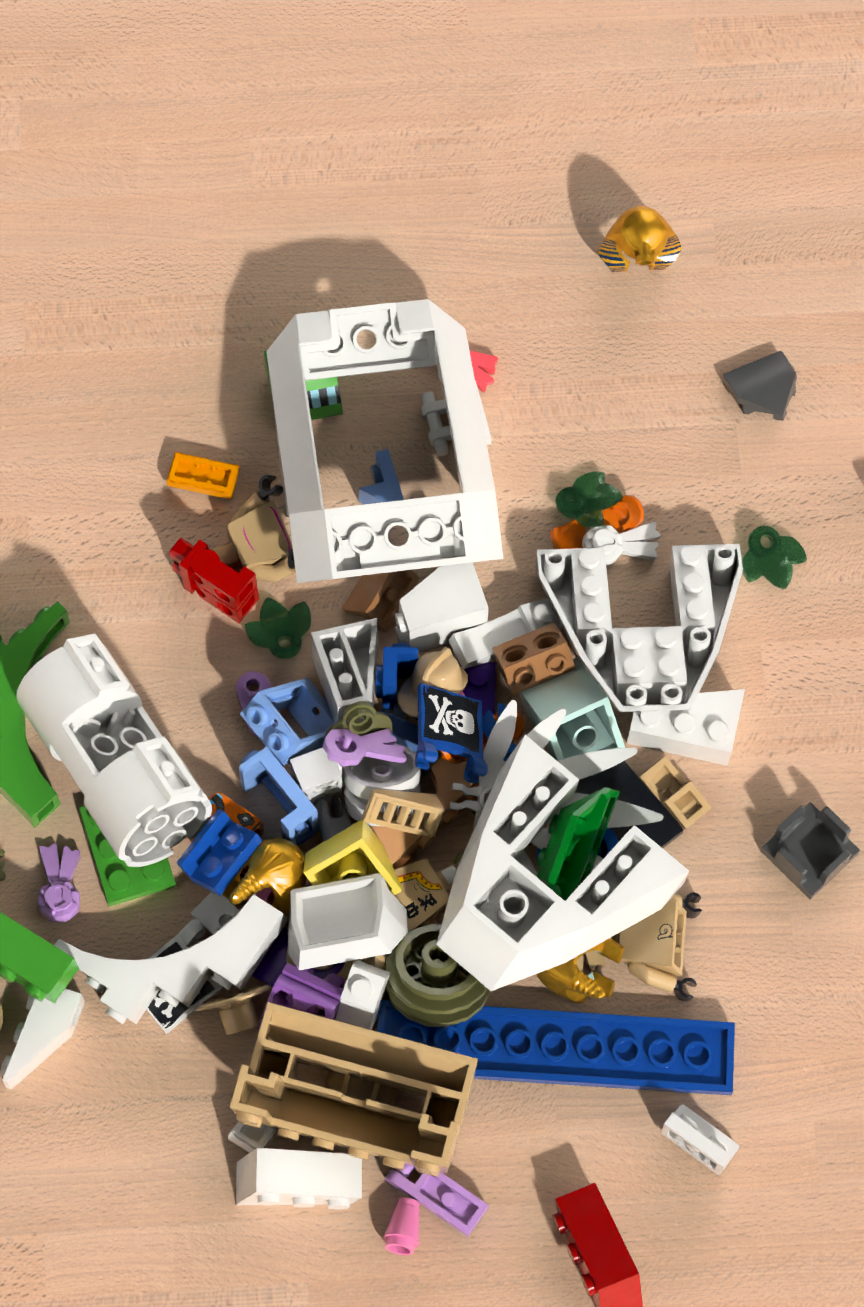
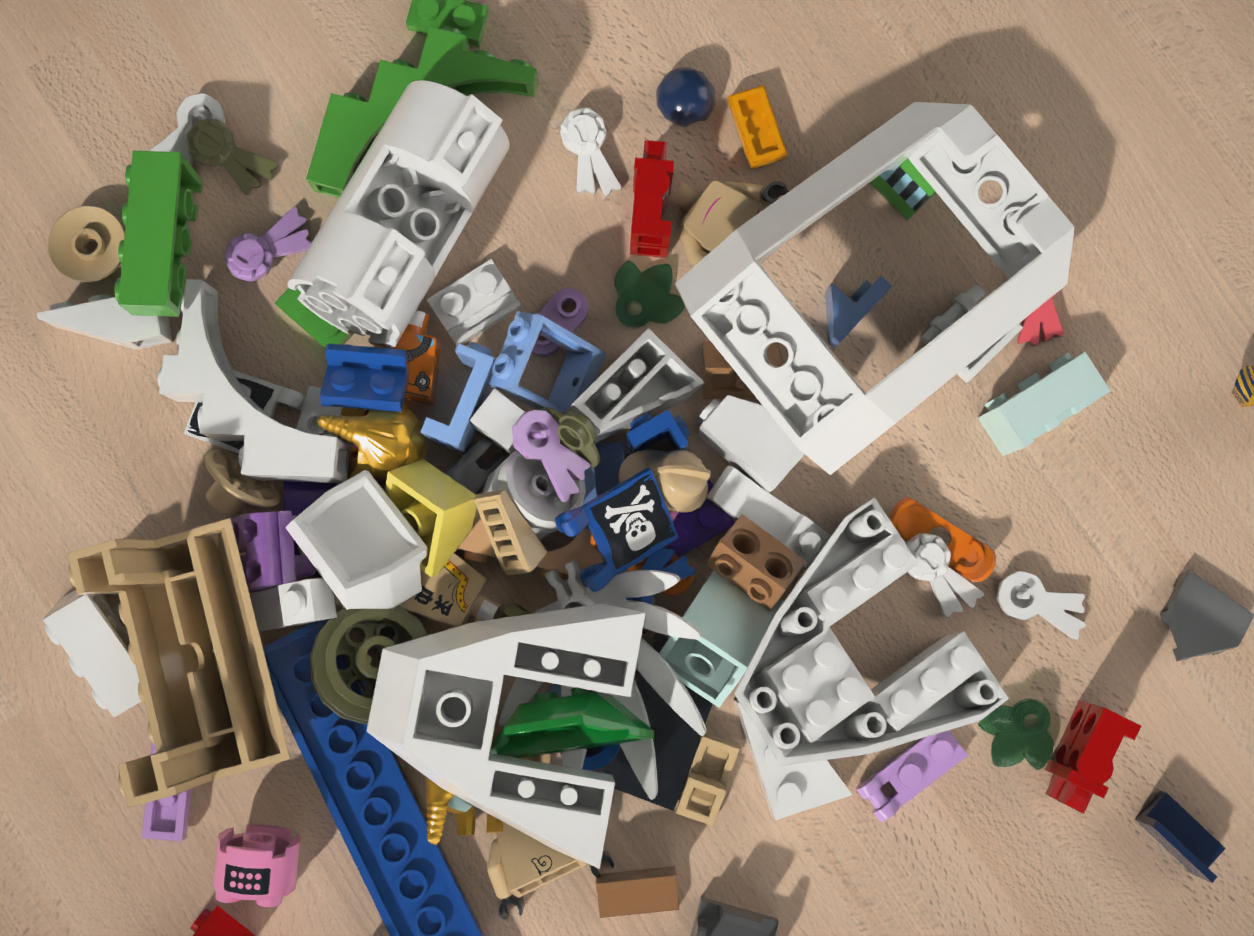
camera: 55 degrees right, 15 degrees up
(125, 601) = (584, 134): none -> white piece
(145, 512) = (685, 96): none -> dark blue hair
(206, 753) = (474, 303): none -> white plate
(403, 1228) = (105, 772): bright pink cone -> none
(539, 400) = (1043, 402): none -> light aqua wedge
(540, 1152) = (256, 865): none -> bright pink brick
(590, 498) = (967, 519): clear green plate -> none
(674, 495) = (1024, 596): none -> white piece
(729, 891) = (637, 892): none -> medium nougat panel
(755, 645) = (911, 772): none -> lavender plate
(811, 515) = (1087, 754): none -> red hips

